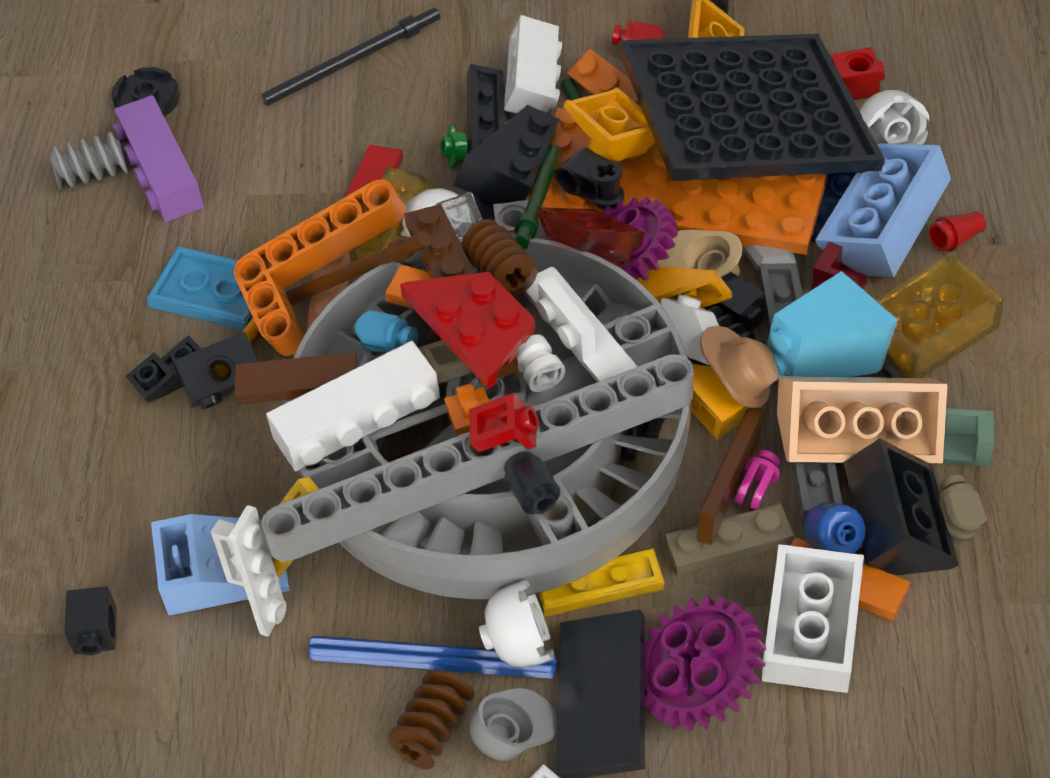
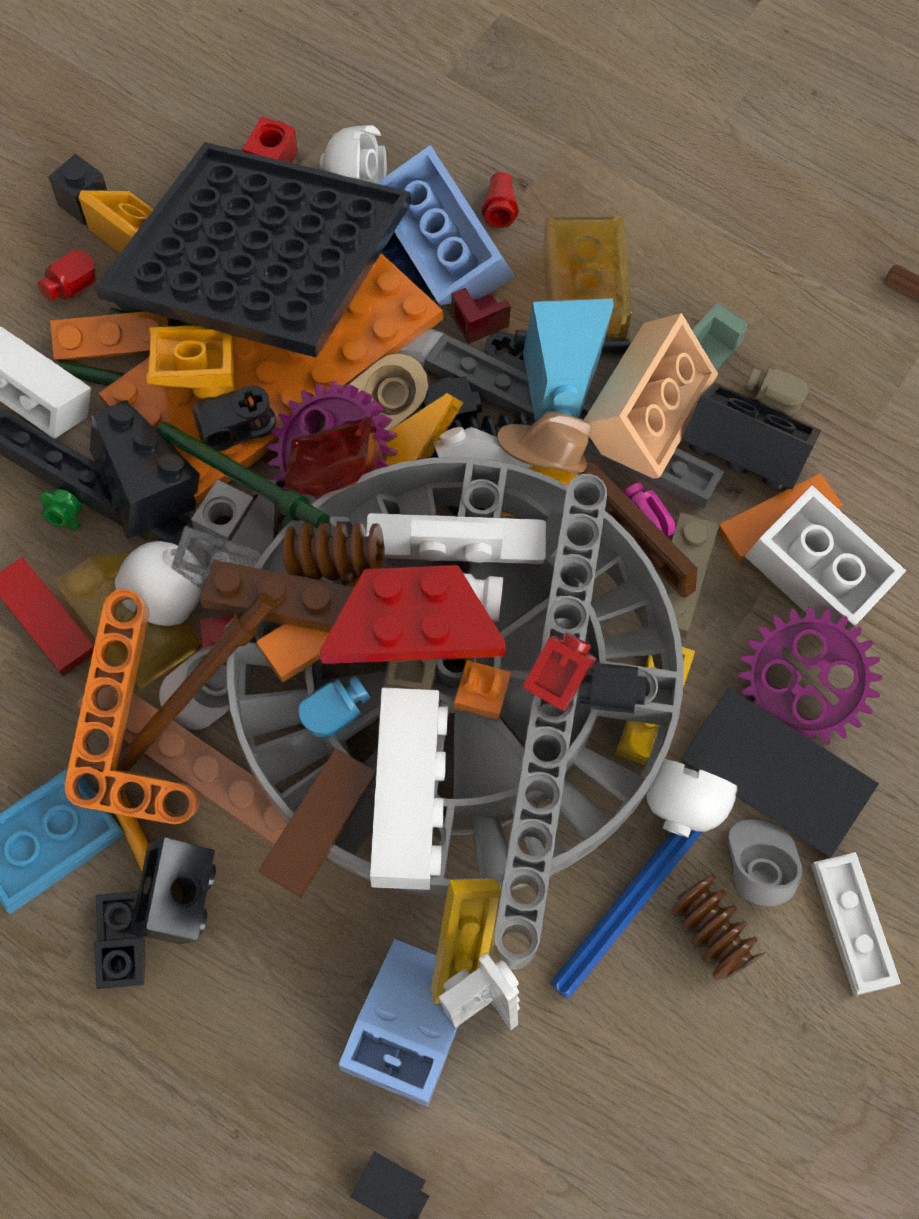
camera: 65 degrees left, 15 degrees up
(834, 528) = (747, 490): blue head -> none

